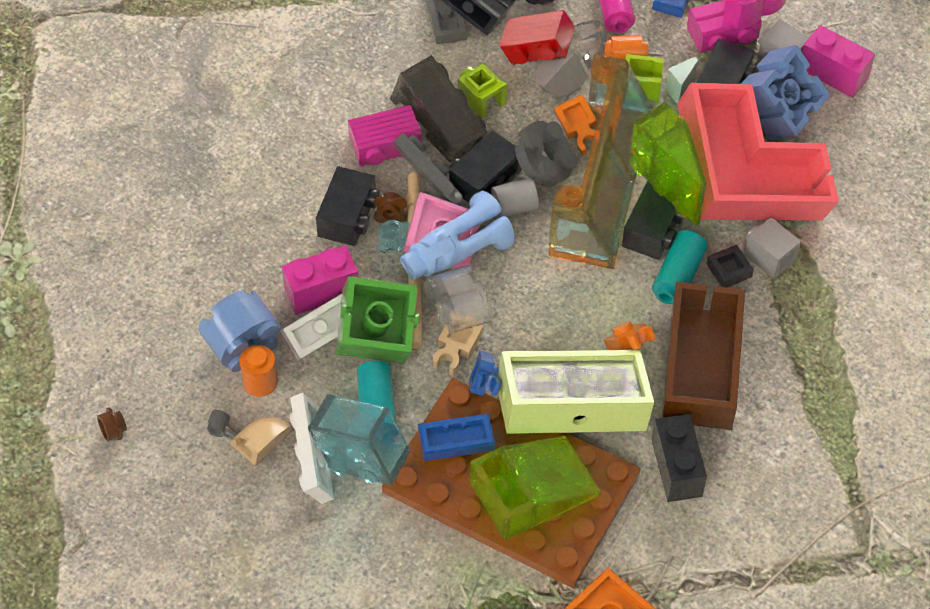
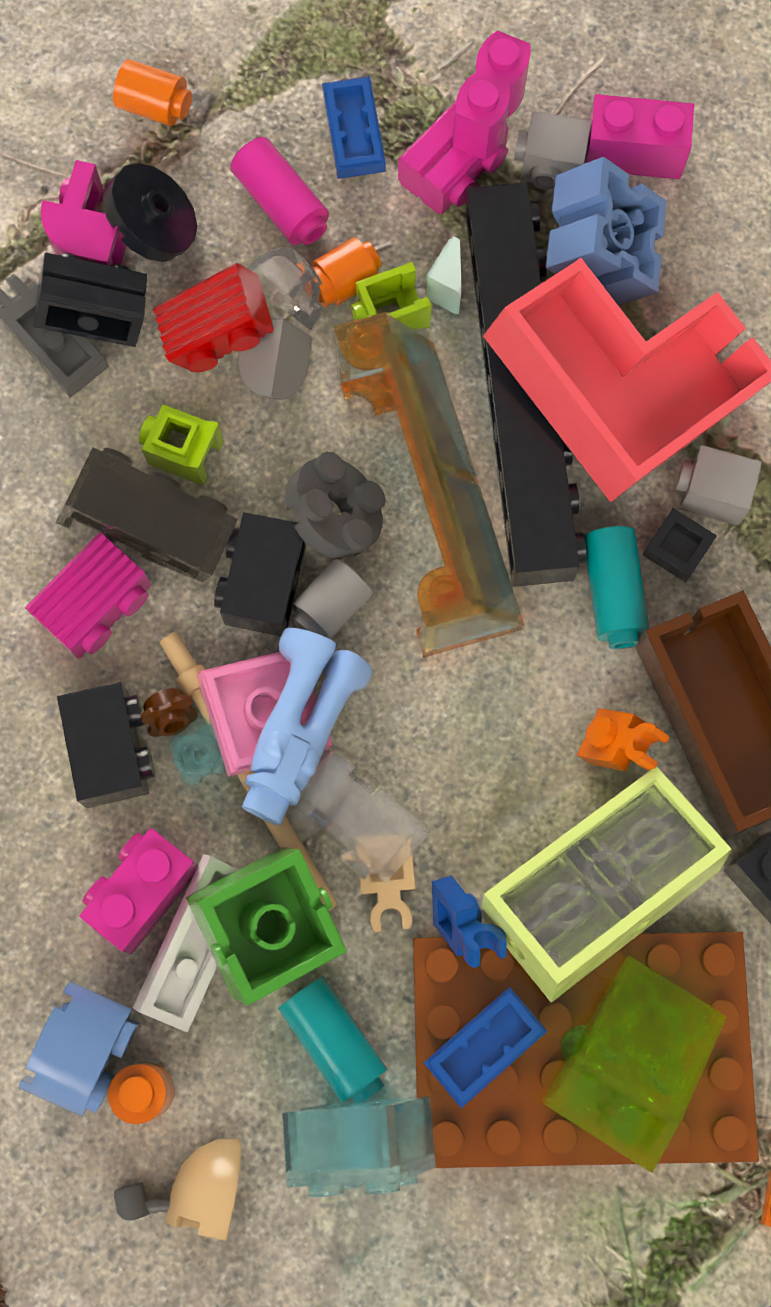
camera: 30 degrees left, 20 degrees up
(315, 473) = (258, 1133): white plate -> none
(432, 171) = (196, 626): dark grey hinge -> none
(577, 120) = (342, 420): orange plate -> none
(668, 160) = (536, 441): clear neon green slope -> none

